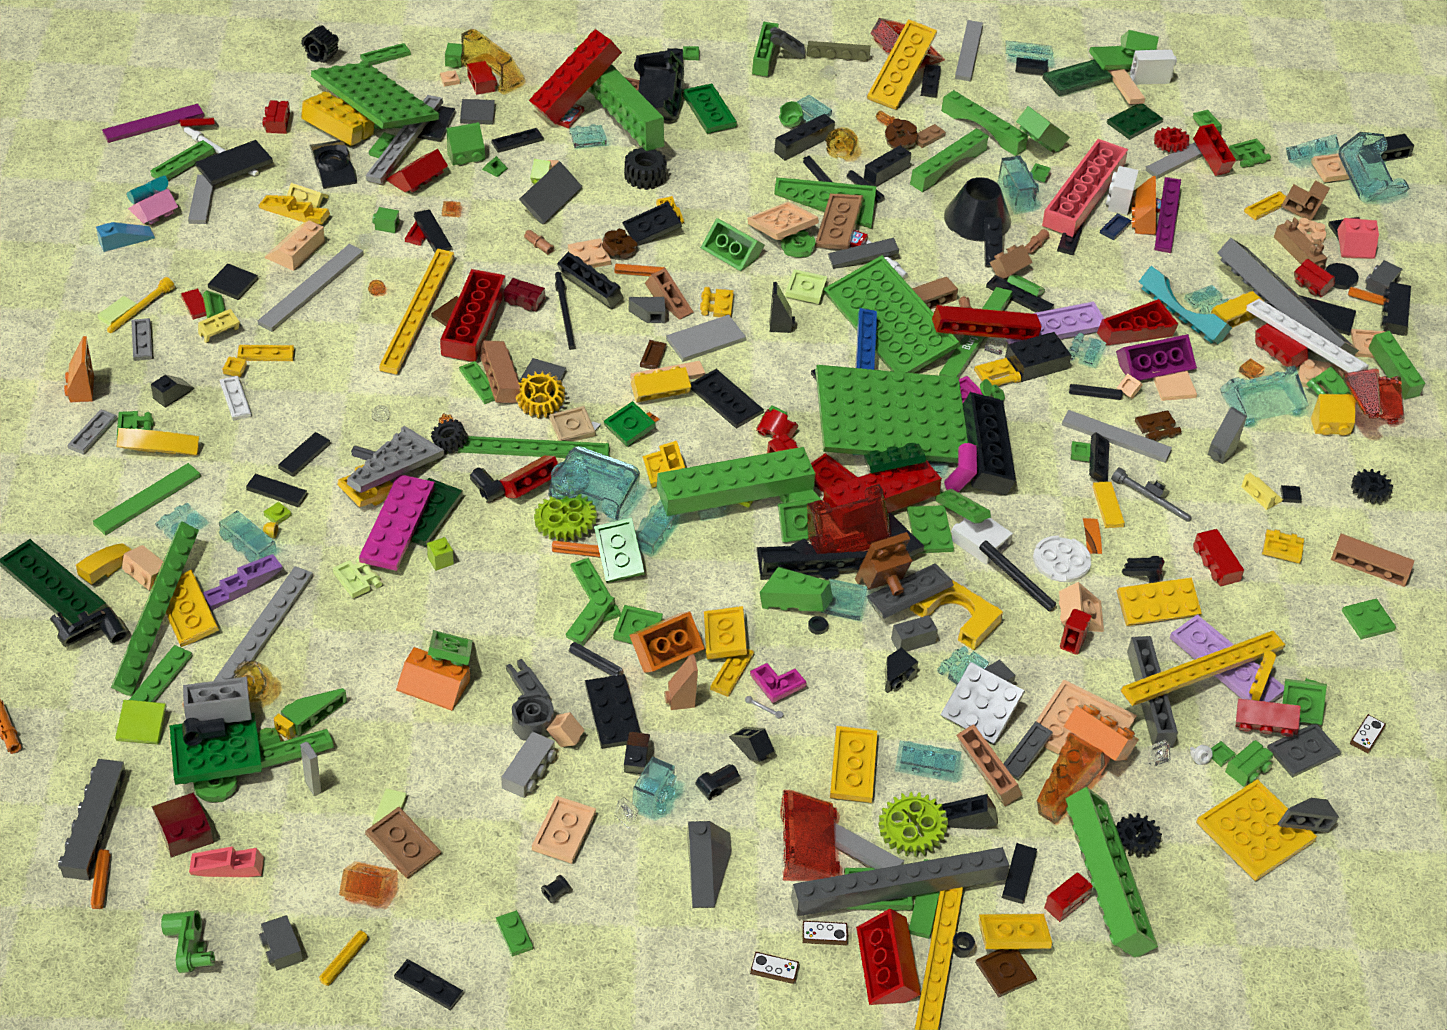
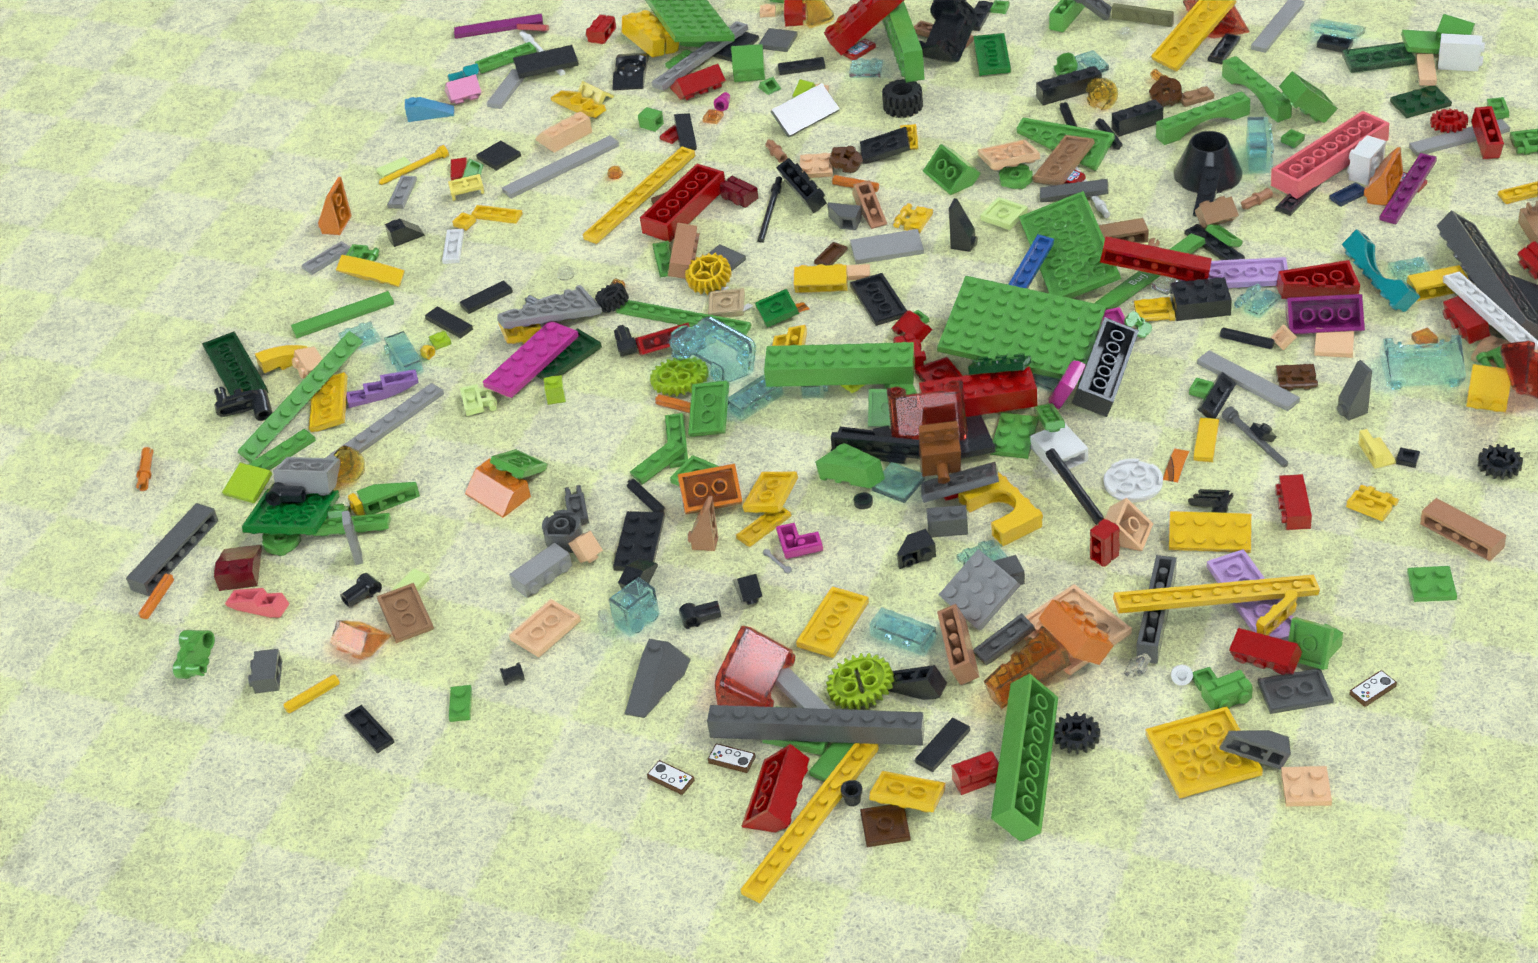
camera: 30 degrees right, 5 degrees down
(341, 822) = (365, 586): none -> black piece
(454, 191) = (722, 102): none -> dark pink cone
(1357, 844) = (1306, 786): none -> light nougat plate

